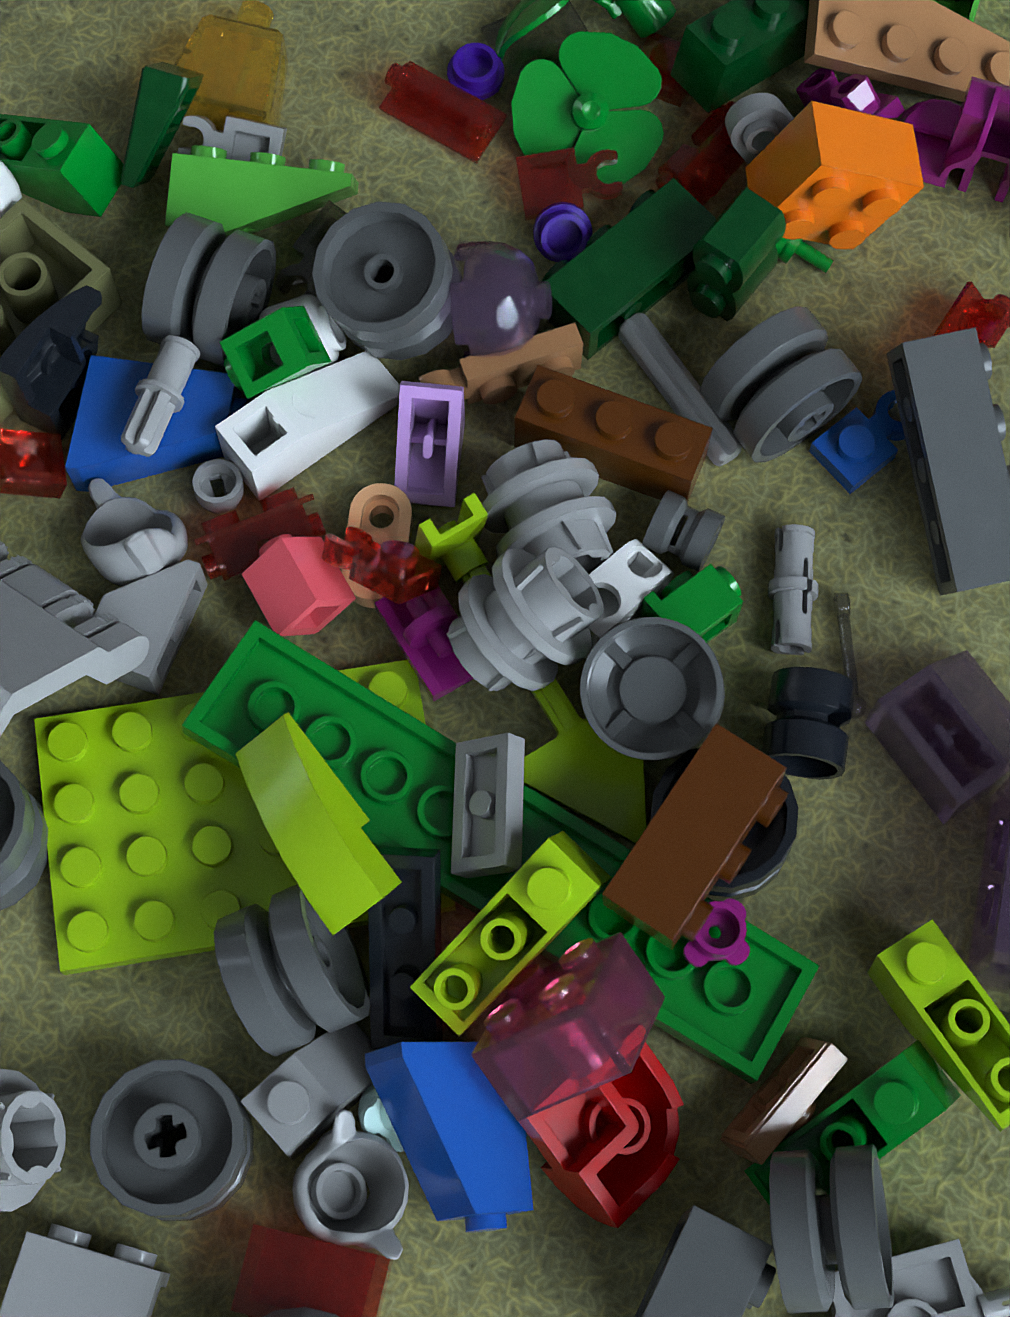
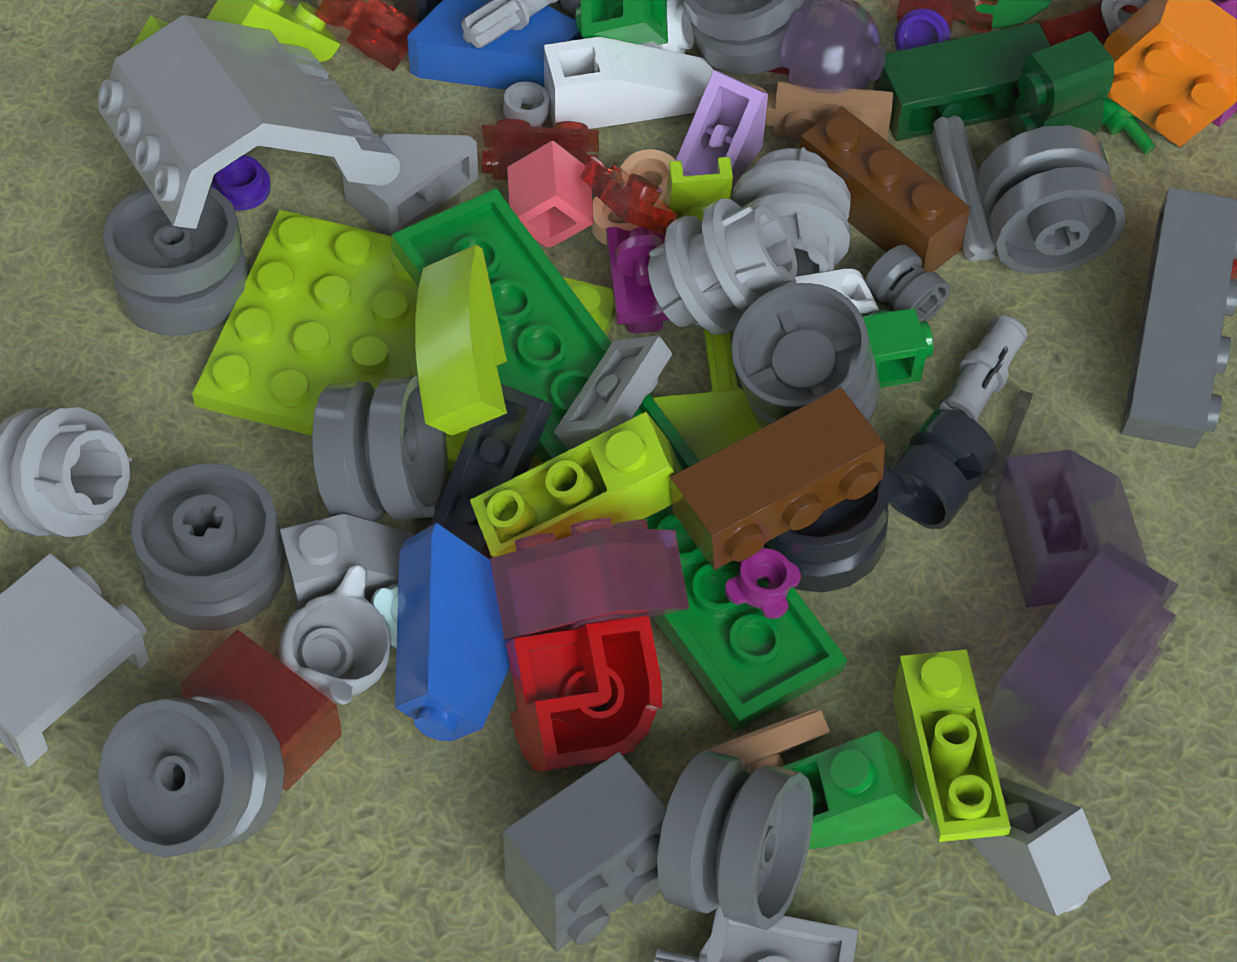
camera: 25 degrees right, 15 degrees down
(130, 537) = (432, 106): light grey hair -> none
(858, 445) = (1103, 290): blue plate -> none

